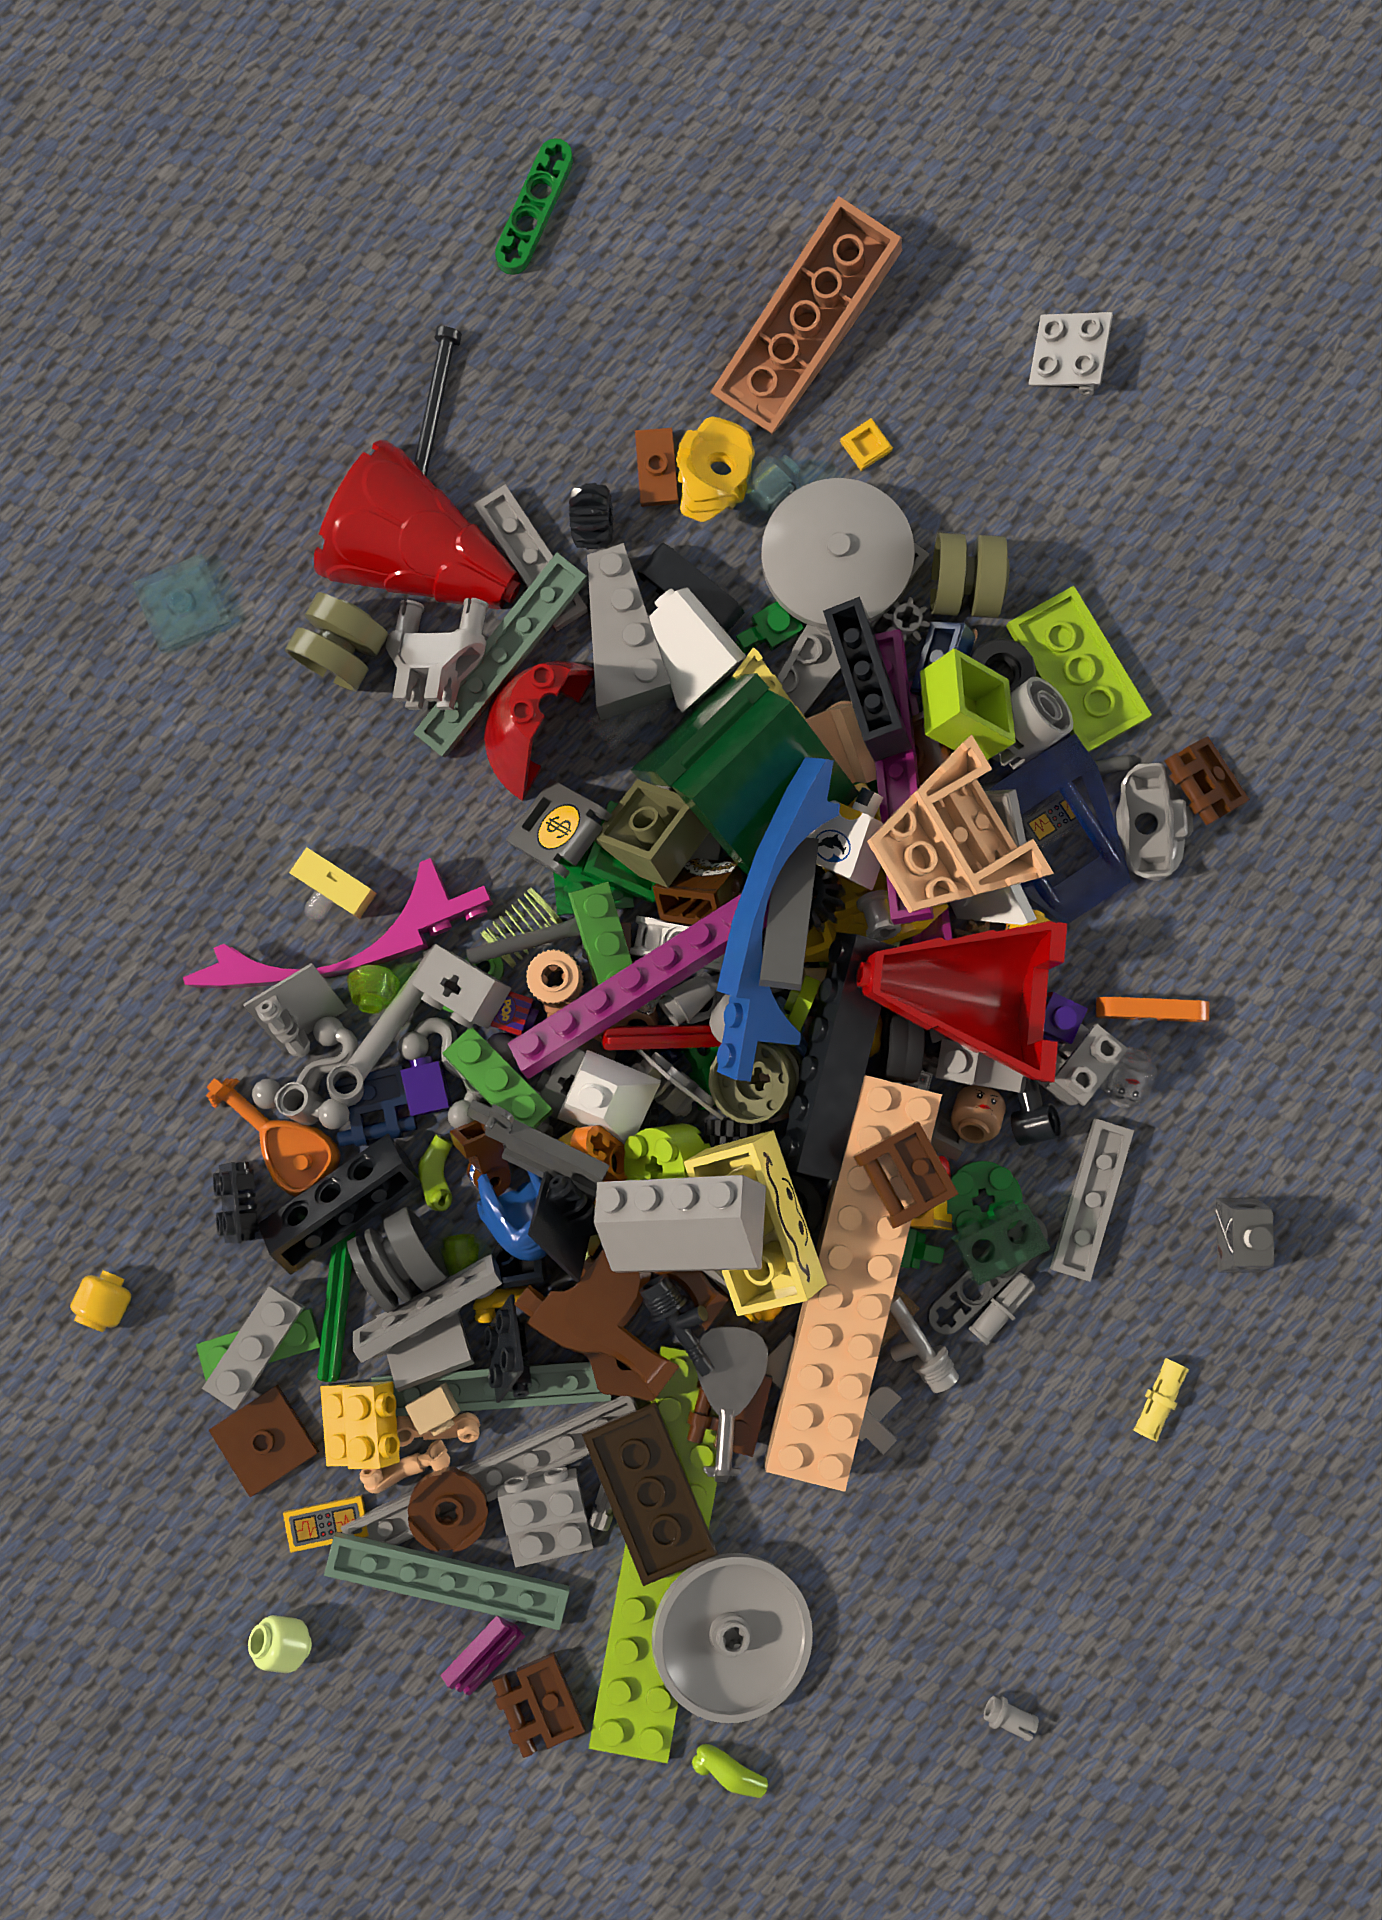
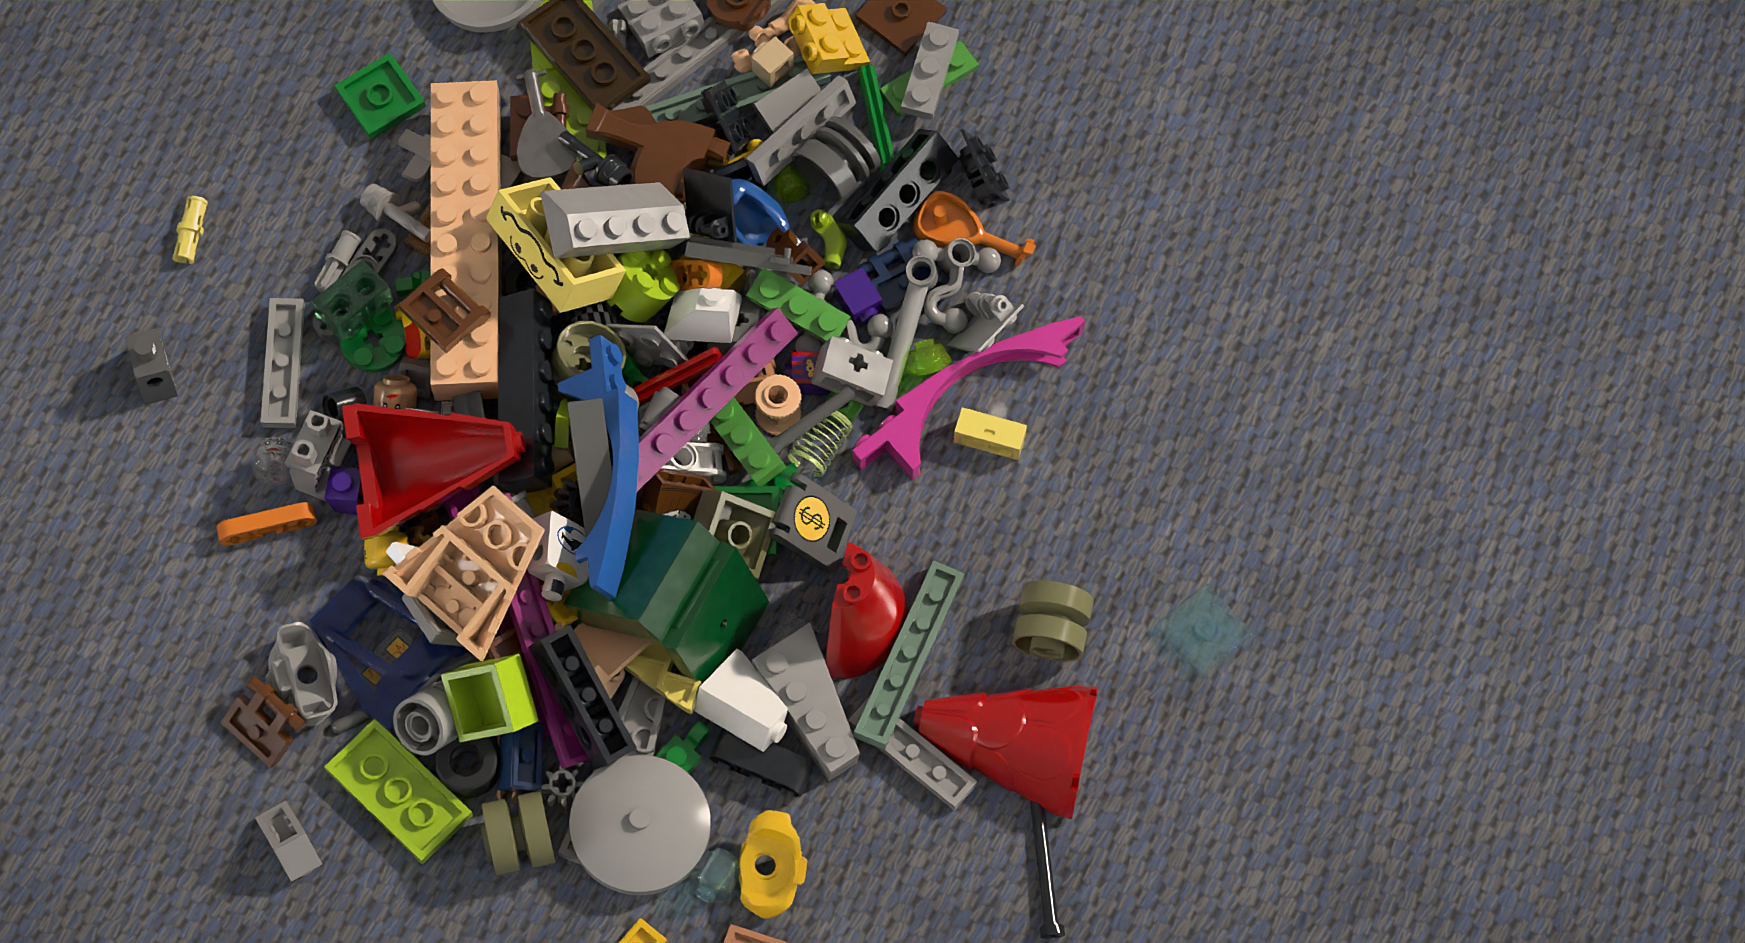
camera: 160 degrees right, 15 degrees down
(100, 1301) = (1063, 72): yellow head -> none
(435, 663) = (967, 633): light grey connector -> none
(591, 516) = (868, 795): black gear -> none
(656, 467) = (826, 868): dark orange plate -> none
(902, 1510) = (380, 96): none -> green plate
(1209, 646) = (288, 841): none -> light grey arch

